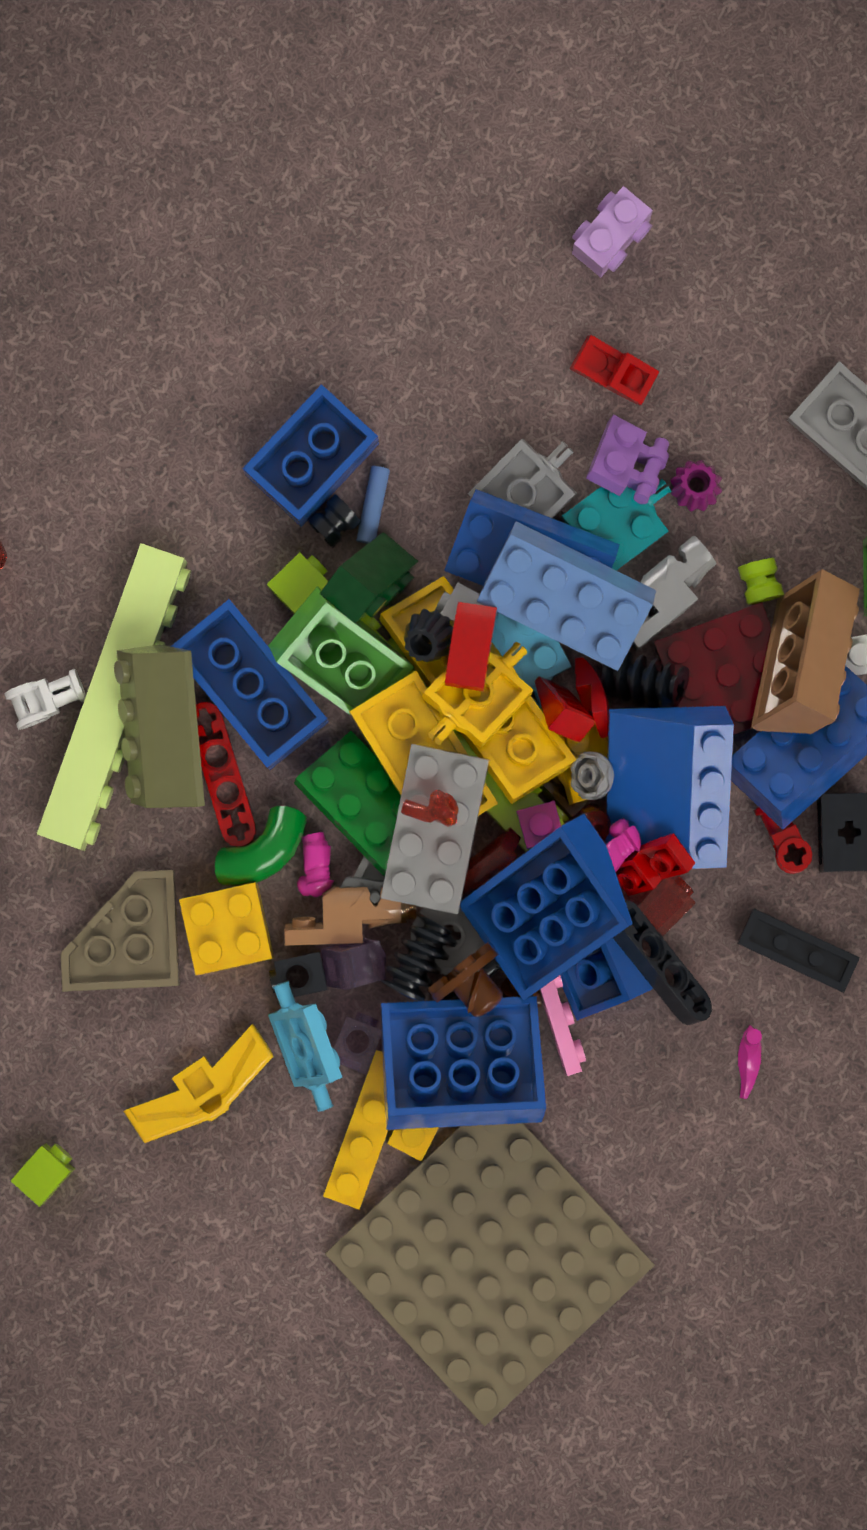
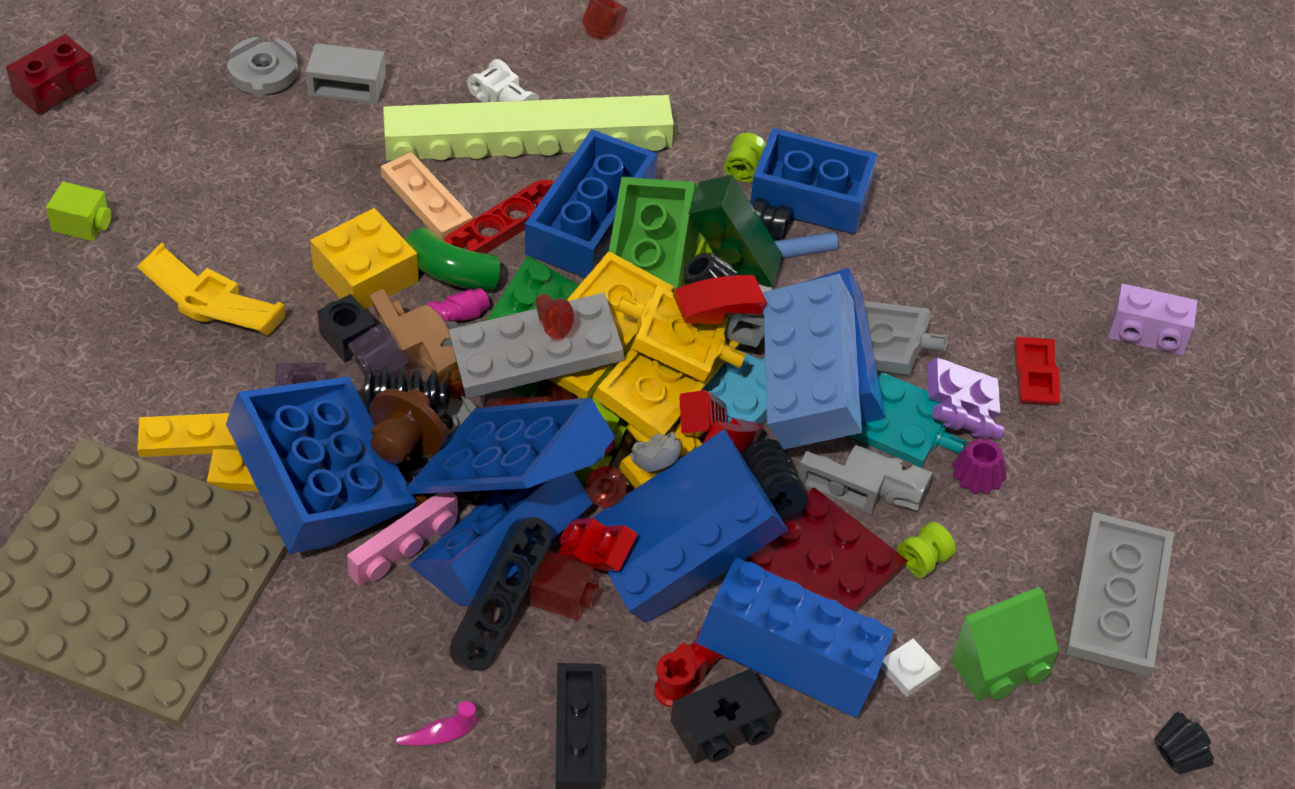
camera: 55 degrees right, 35 degrees down
(128, 940) = (315, 203): dark tan plate -> none
(159, 727) = (519, 143): olive slope -> none
(160, 834) = (425, 195): none -> light nougat plate
(244, 502) = (744, 156): none -> lime wheel
(305, 1045) = (274, 347): medium azure plate -> none
(625, 841) = (593, 501): dark pink arm -> none
(807, 656) = (883, 585): medium nougat slope -> none

